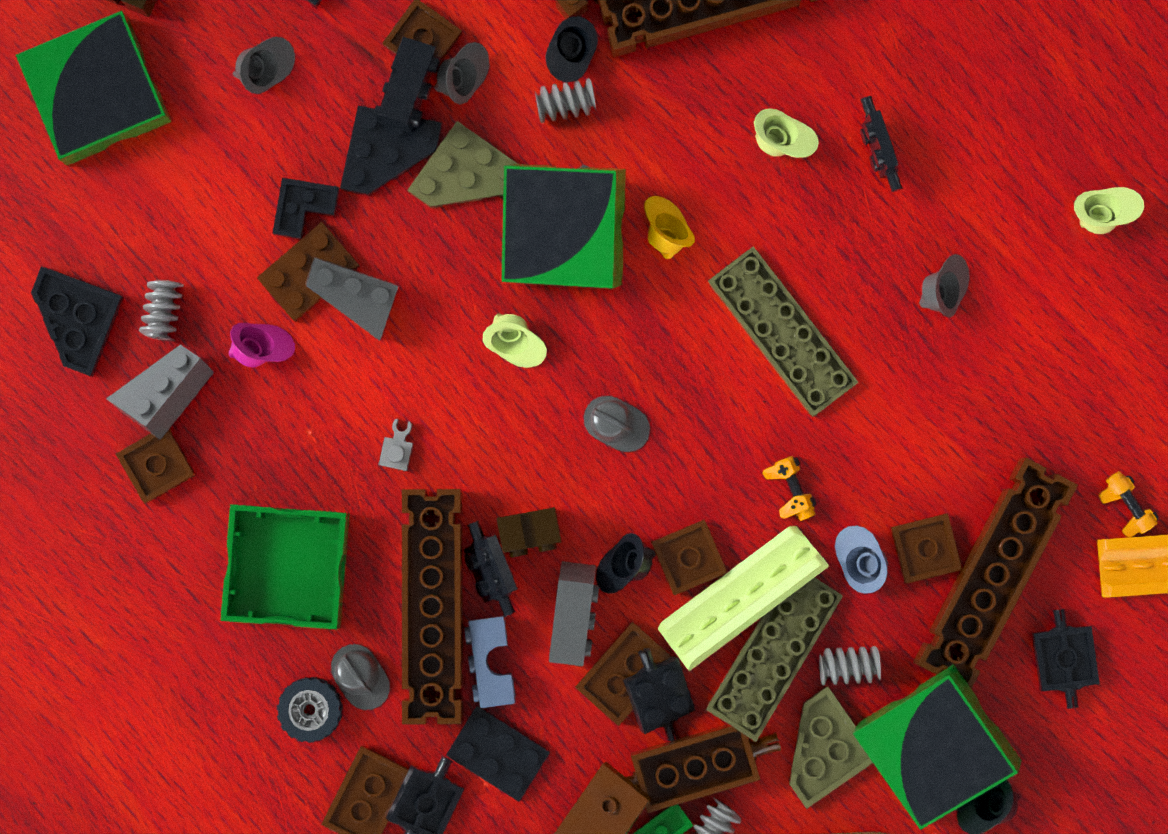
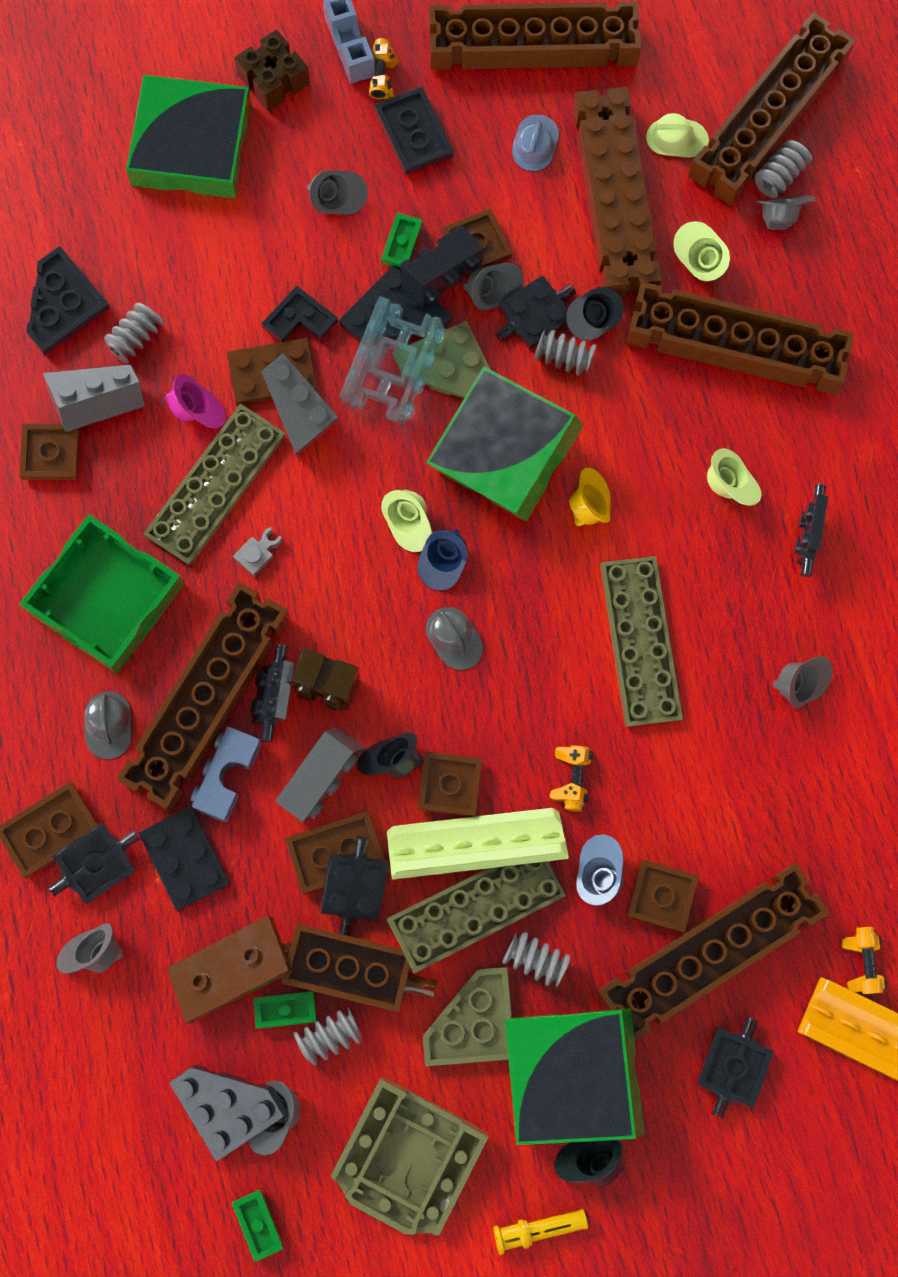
camera: 20 degrees right, 10 degrees down
(307, 726) = (38, 712): black wheel -> none
(321, 407) = (214, 485): none -> olive plate
(352, 77) = (401, 240): none -> green plate
(390, 205) = (372, 351): none -> clear light blue fence
(514, 74) = (533, 310): none -> black plate
(567, 360) = (442, 559): none -> dark blue piece

